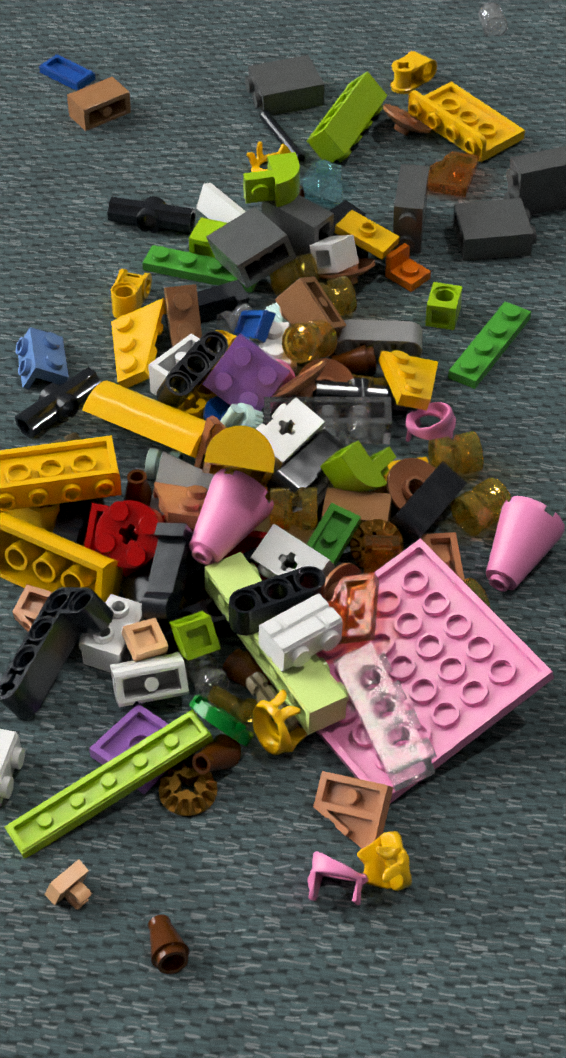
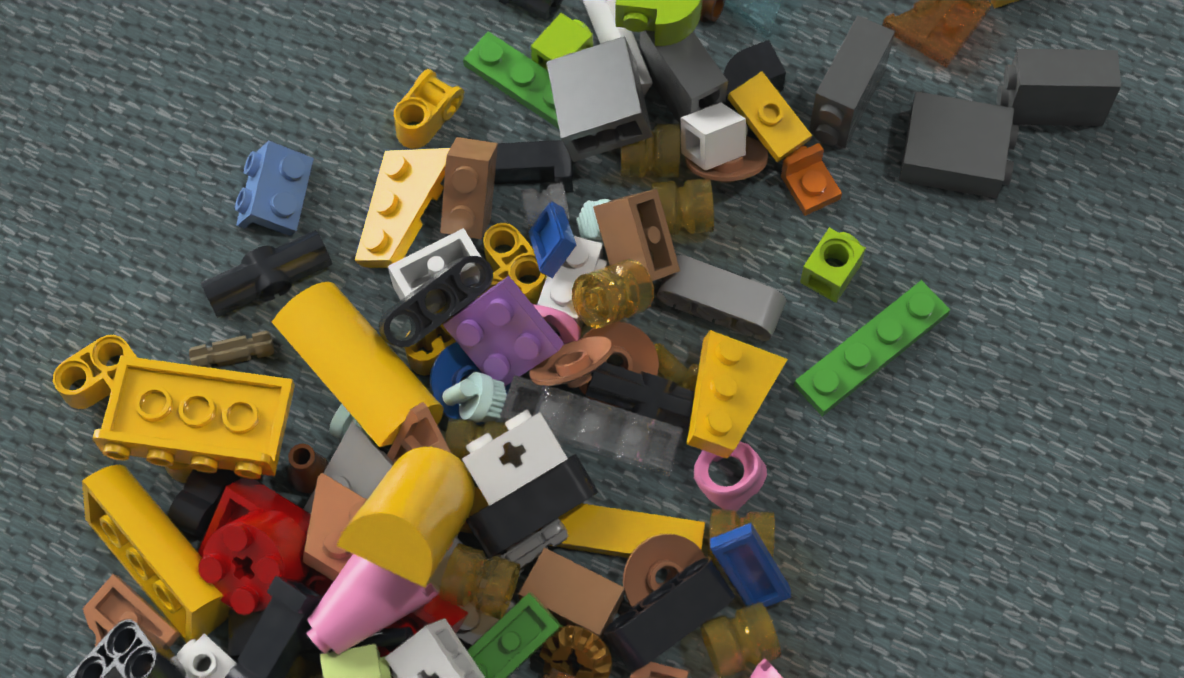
camera: 20 degrees right, 20 degrees up
(356, 470) = (591, 541): lime brick -> none
(359, 360) = (679, 325): reddish brown cone -> none
(469, 458) = (750, 566): none -> blue tile

